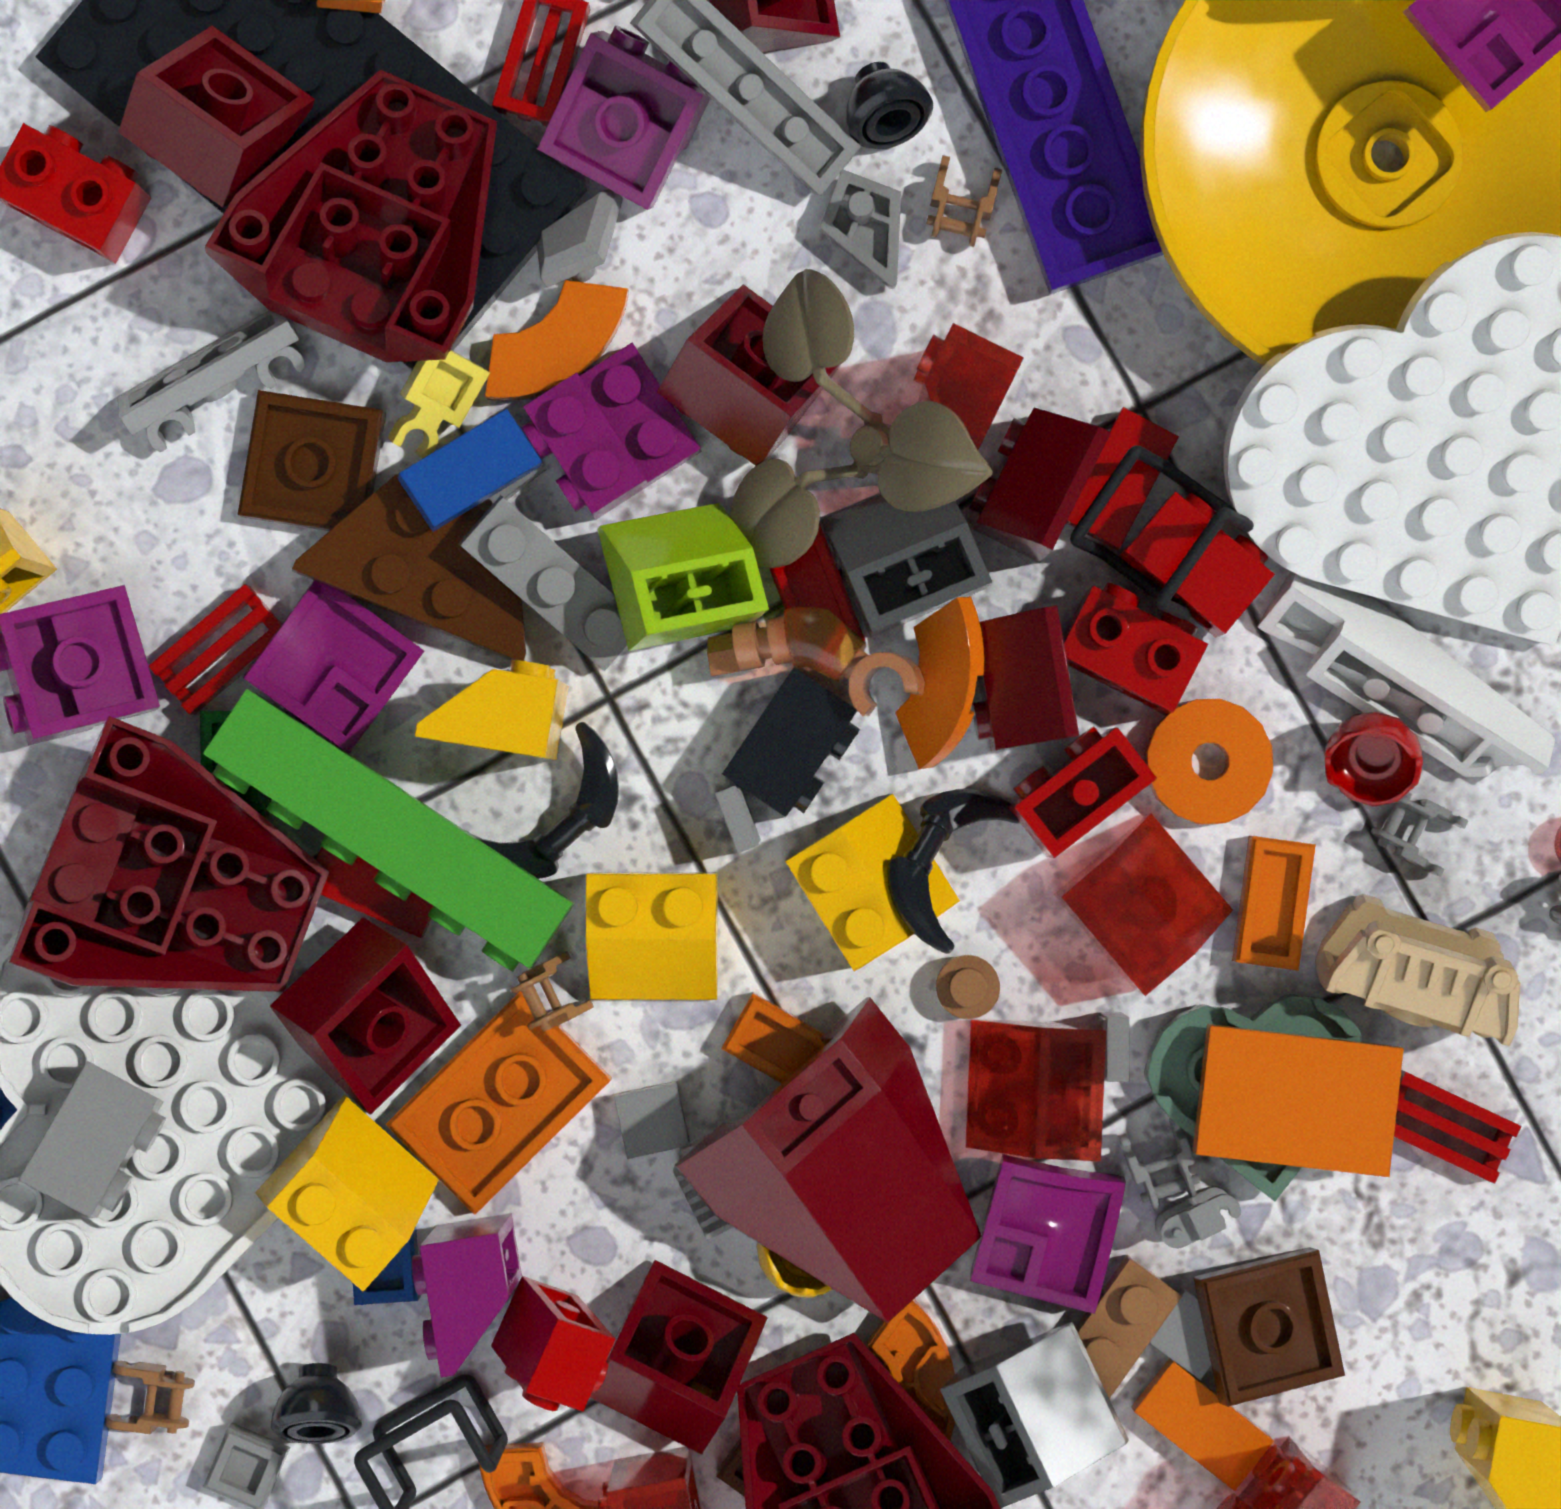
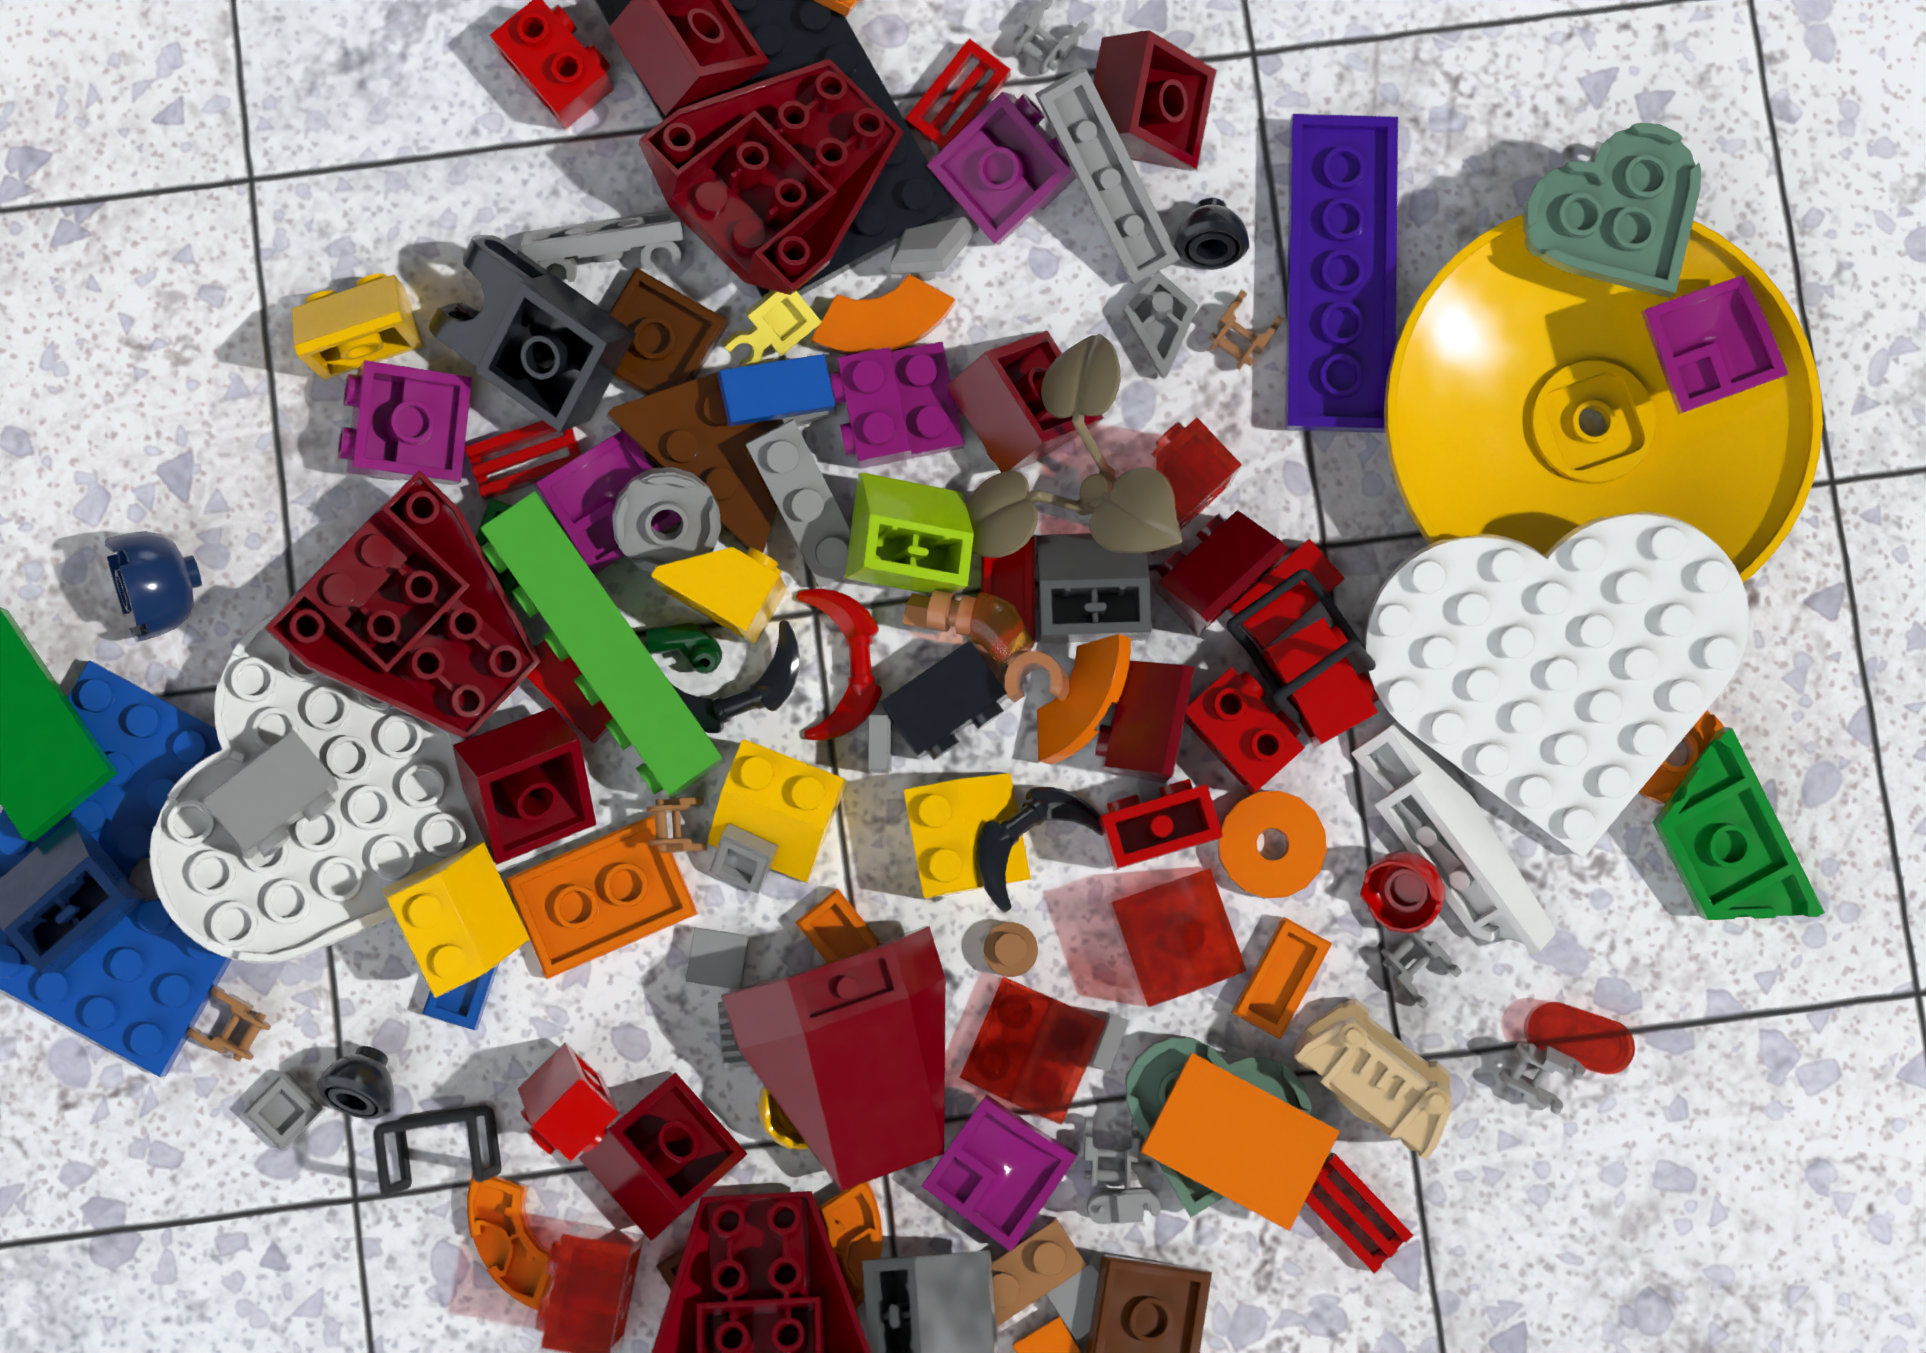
camera: 15 degrees right, 5 degrees down
(174, 512) = (534, 335): none -> black brick
(400, 628) = (662, 490): none -> light grey tile
(468, 1279) = (519, 1029): magenta slope -> none
(485, 785) = (690, 641): none -> dark green arm
(637, 1001) = (743, 858): none -> light grey tile
(696, 768) = (862, 691): none -> red piece

